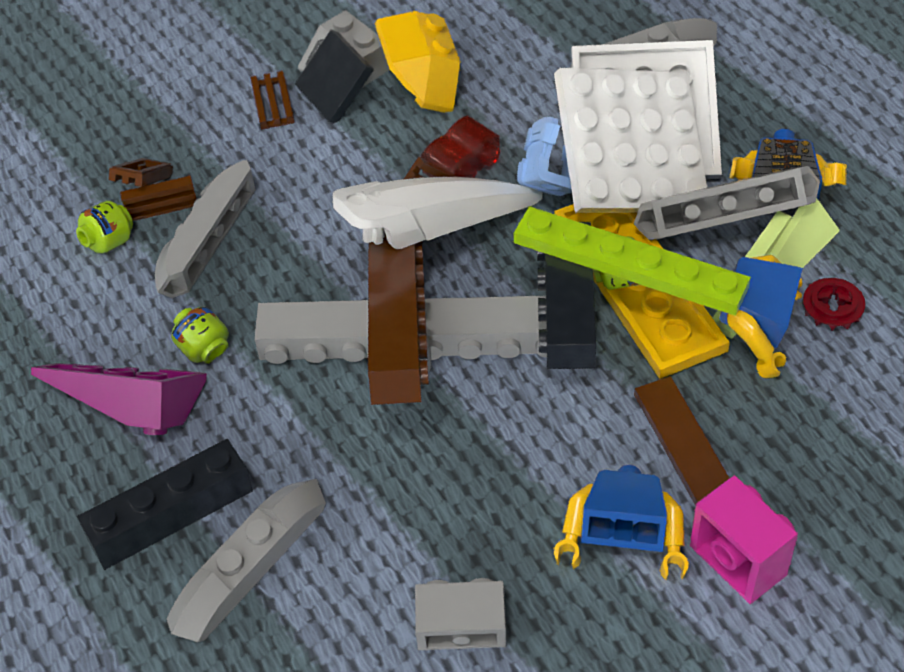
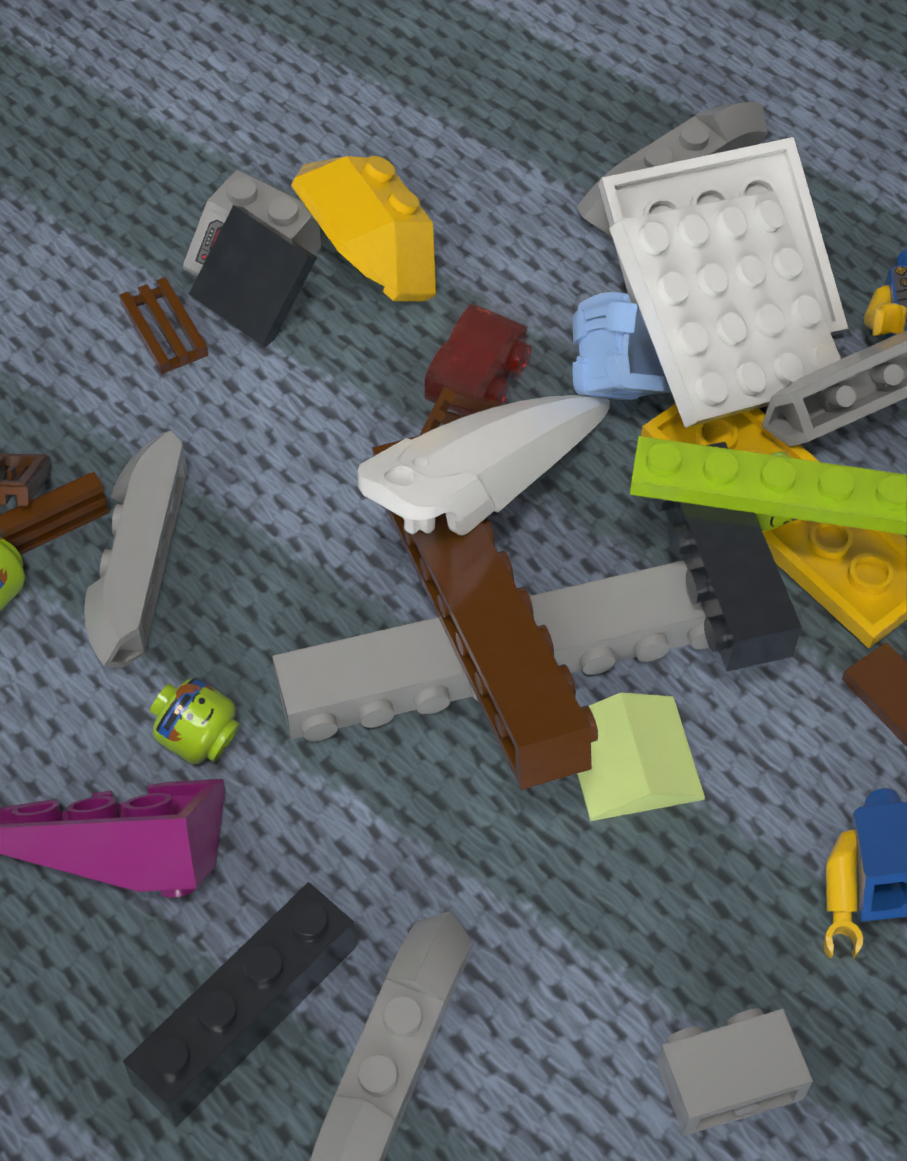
camera: 20 degrees left, 5 degrees up
(473, 412) = (638, 757): none -> yellowish green slope

